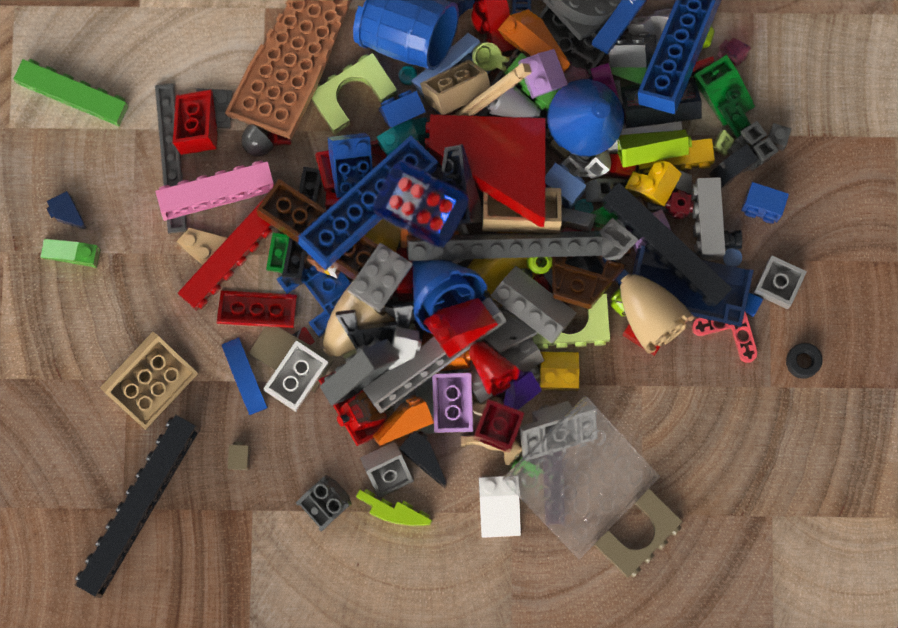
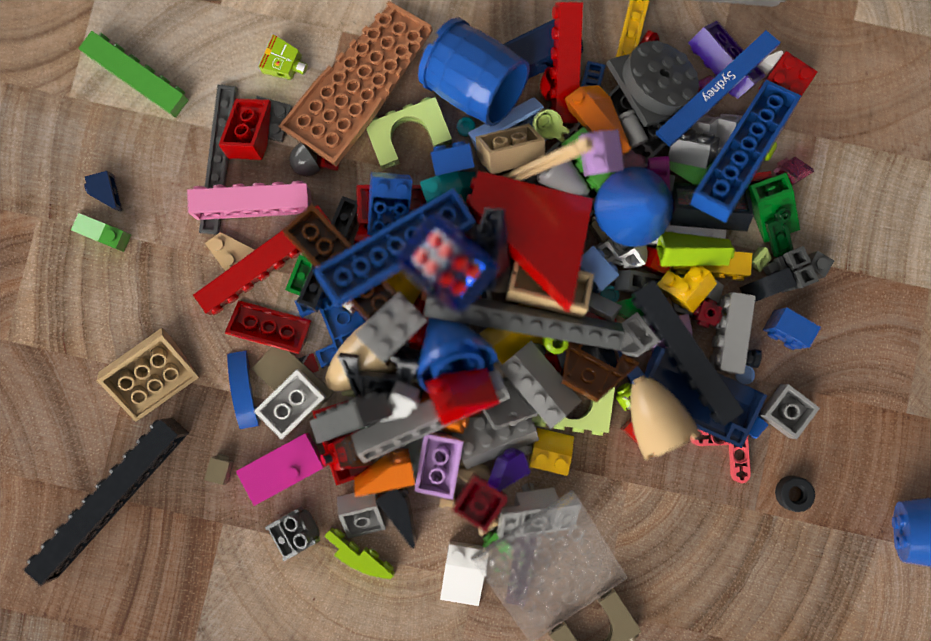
camera: 10 degrees right, 5 degrees up
(214, 48) = (281, 60): none -> lime torso
(299, 442) = (280, 468): none -> dark pink brick
(492, 368) = (485, 443): red cone -> none
(569, 44) = (632, 128): none -> light grey piece

